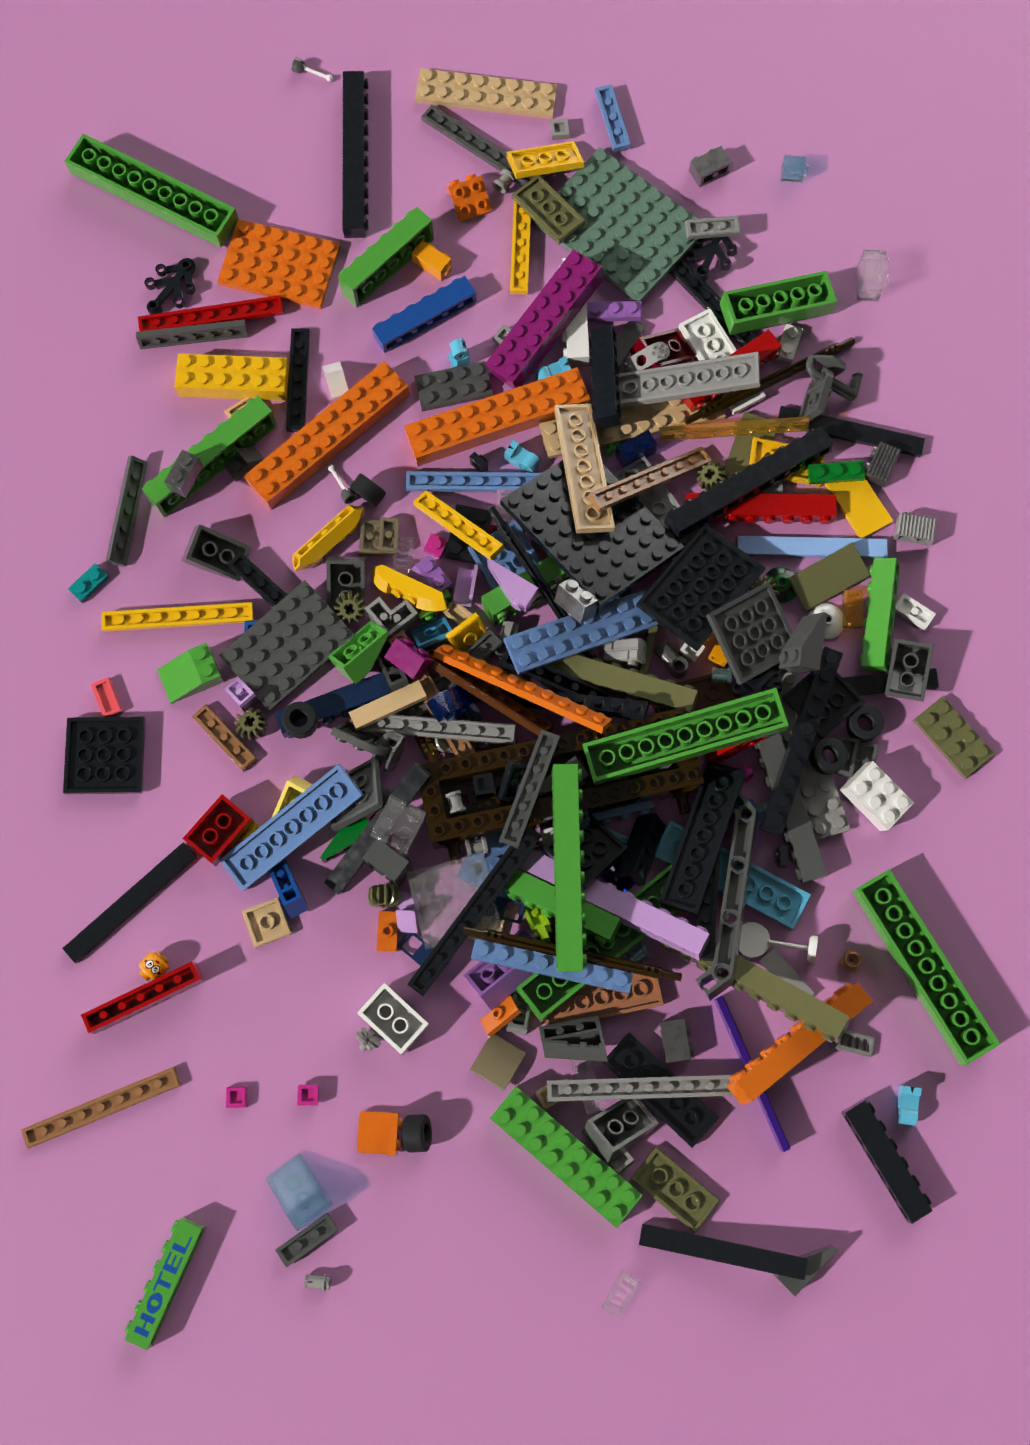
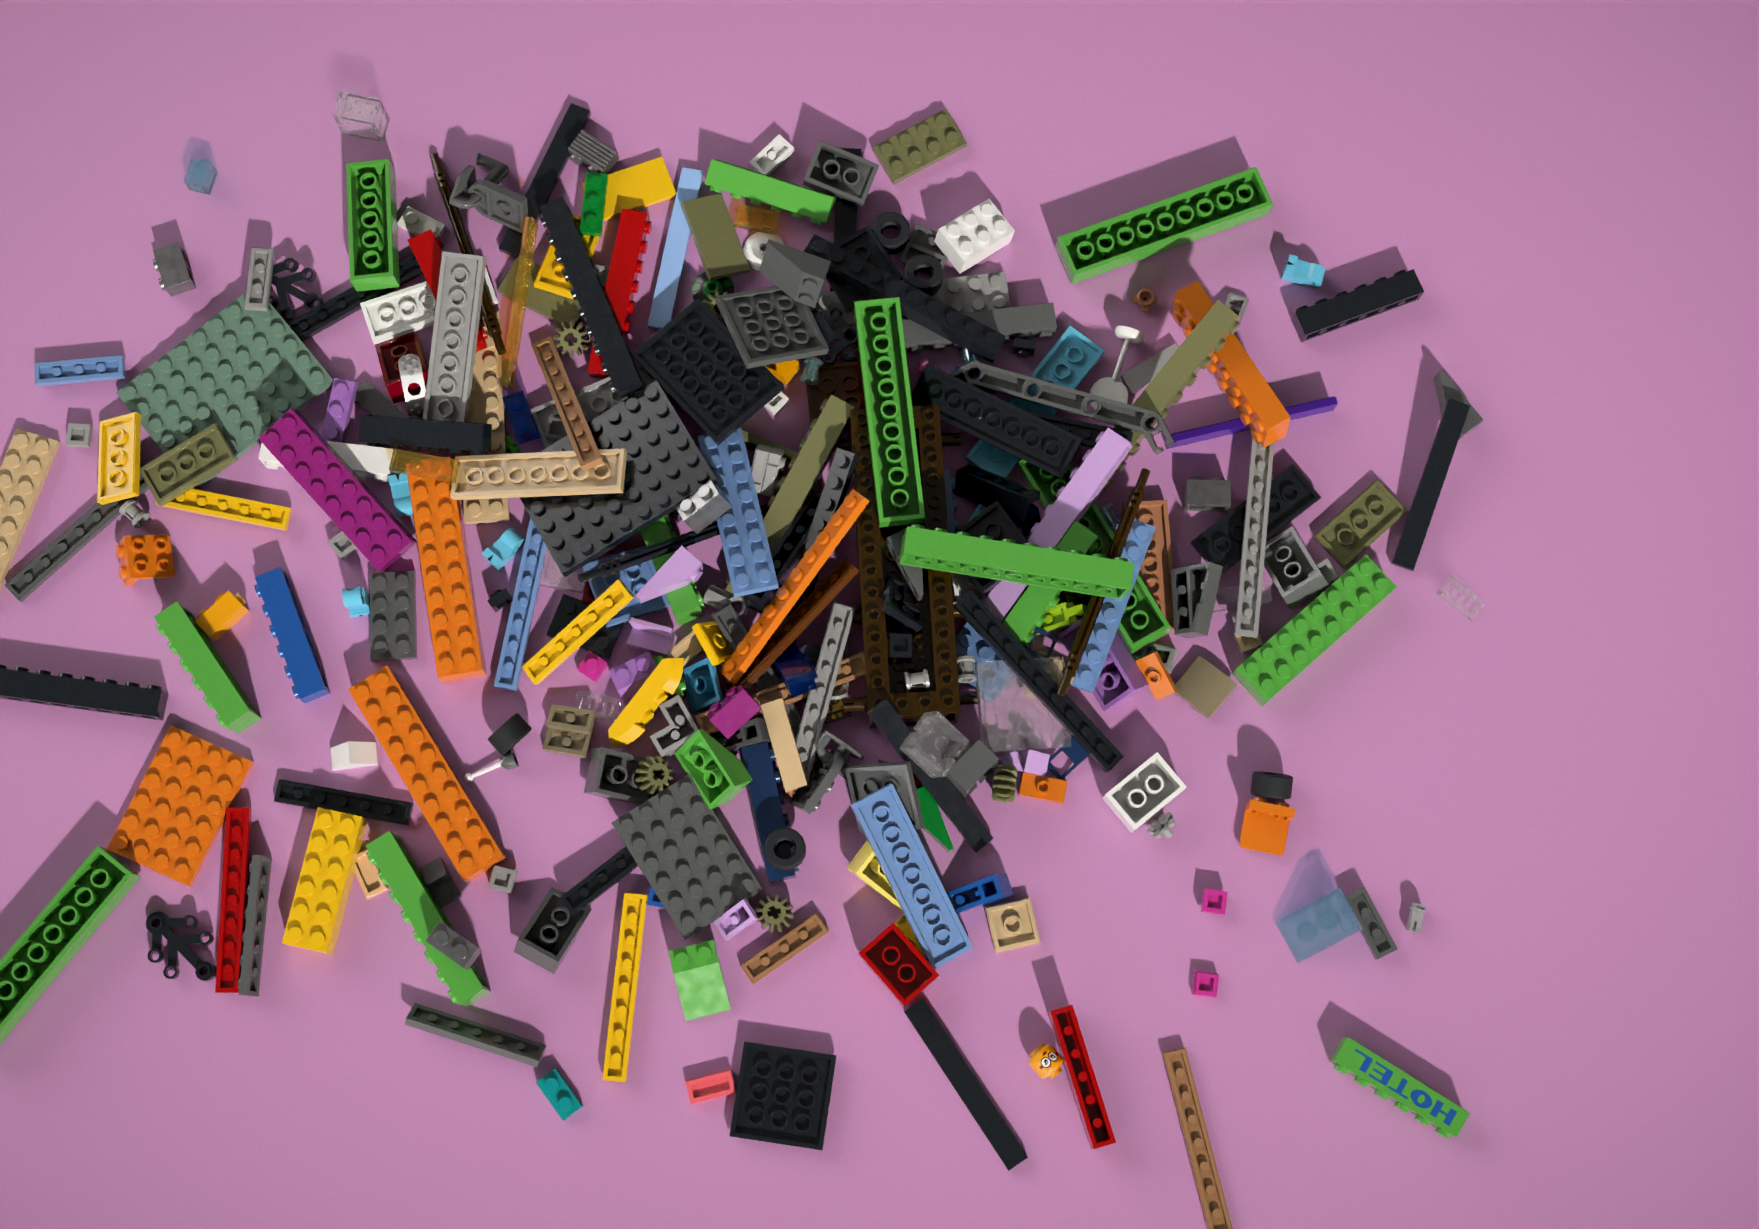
camera: 85 degrees left, 0 degrees up
(251, 508) = (502, 879): none -> light grey plate
(325, 539) = (559, 791): yellow brick -> none
(529, 789) = (918, 591): dark grey plate -> none
(576, 379) = (424, 466): none -> clear yellow tile
(672, 658) = (779, 423): dark grey piece -> none
(915, 528) = (676, 135): light grey brick -> none

